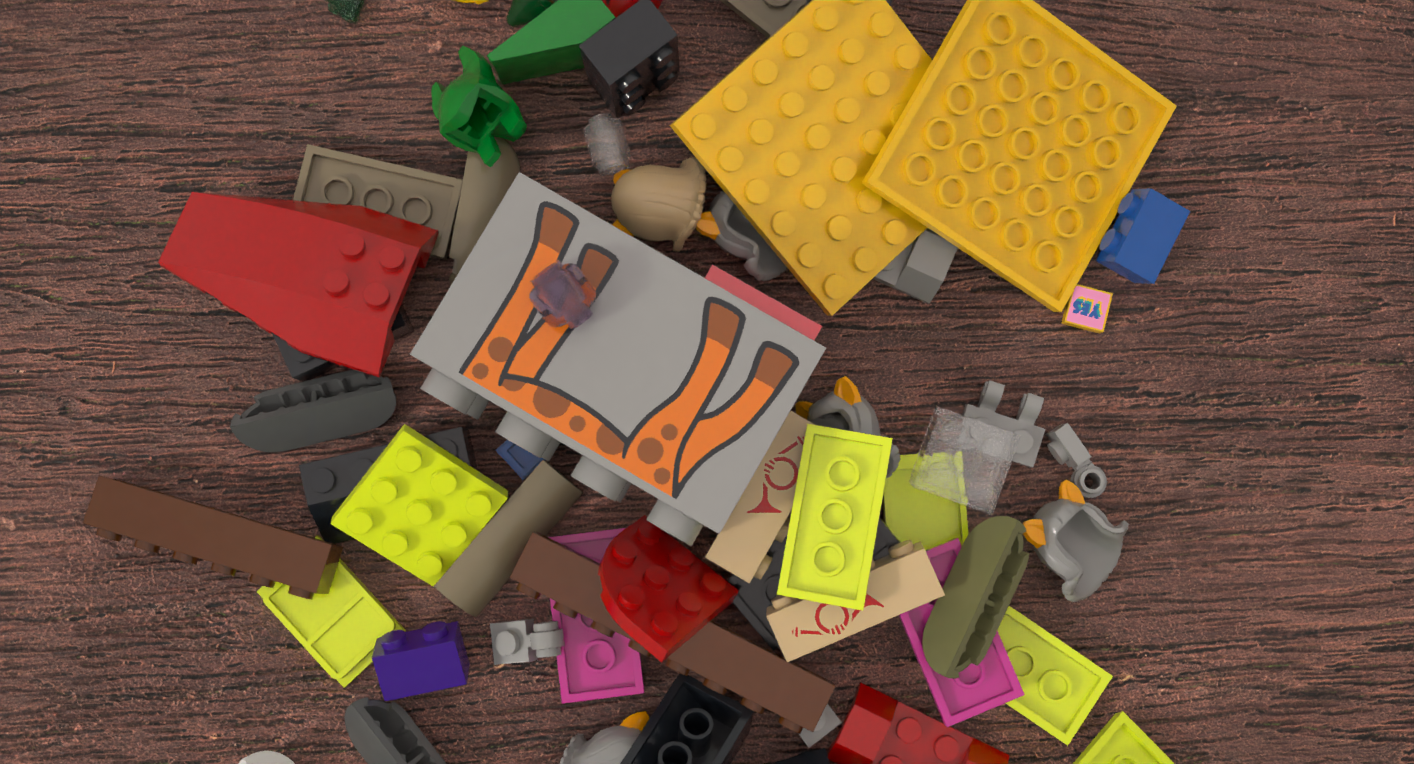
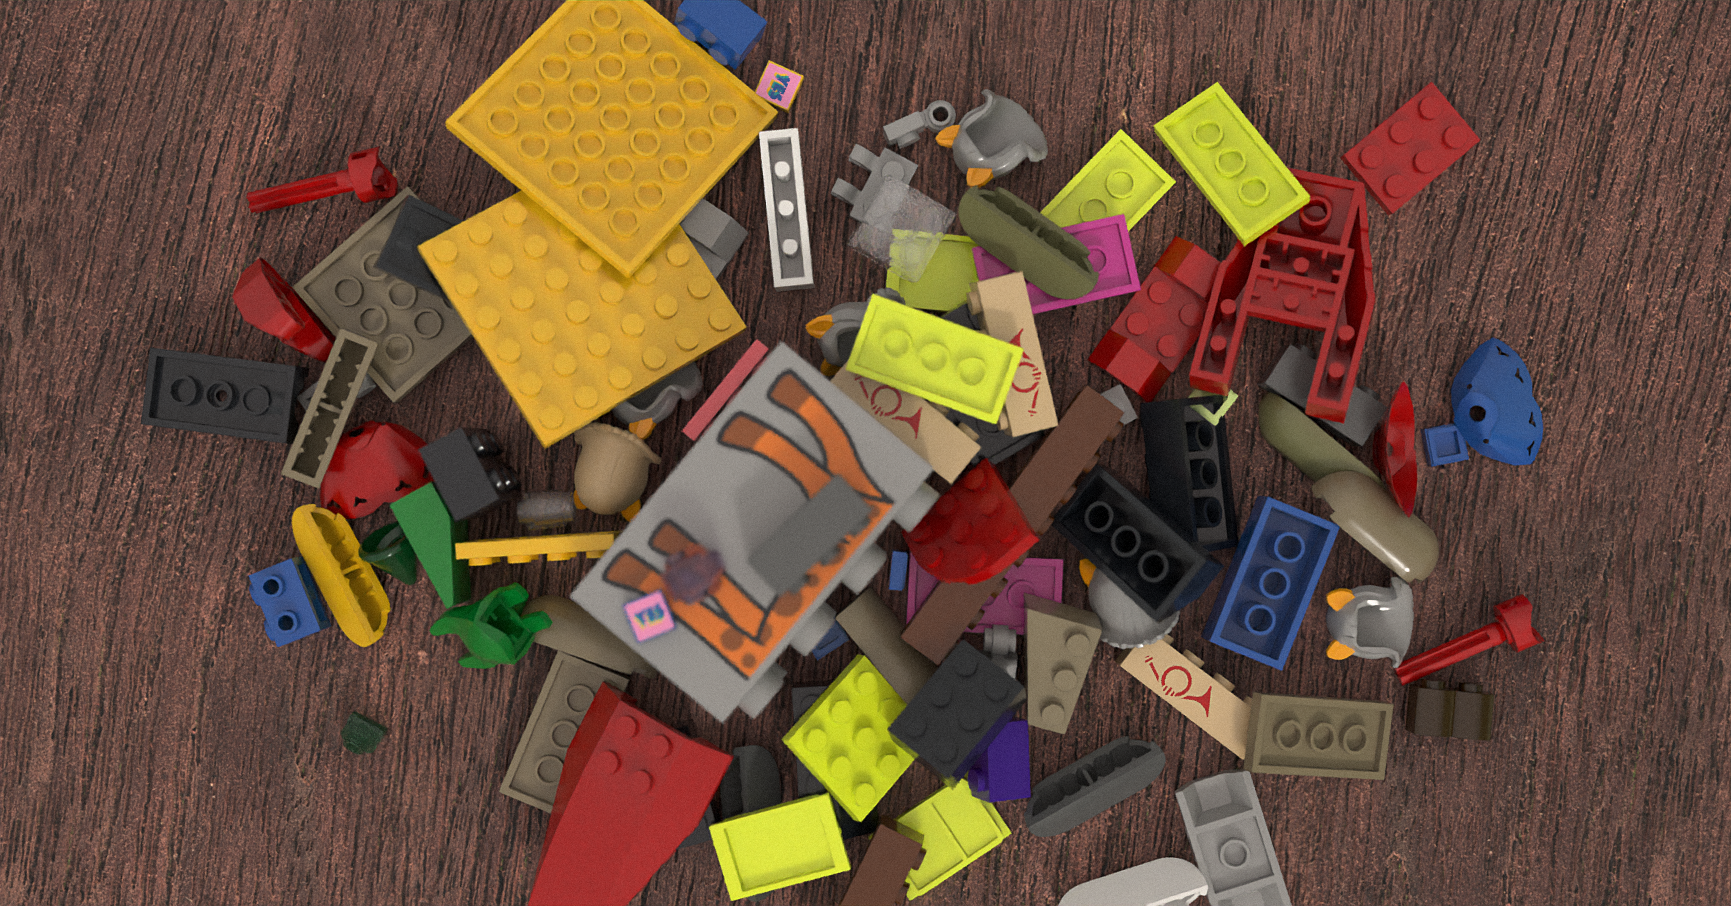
camera: 80 degrees left, 5 degrees up
(291, 442) = (779, 846): none -> neon yellow piece
(460, 607) = (957, 714): none -> black brick
(511, 258) = (650, 616): none -> tile
(536, 704) = (1057, 659): none -> dark tan wedge
(563, 131) = (529, 547): none -> yellow plate
(604, 518) = (898, 570): none -> blue tile
(623, 413) = (811, 536): none -> dark grey brick
(961, 337) = (786, 209): none -> white brick

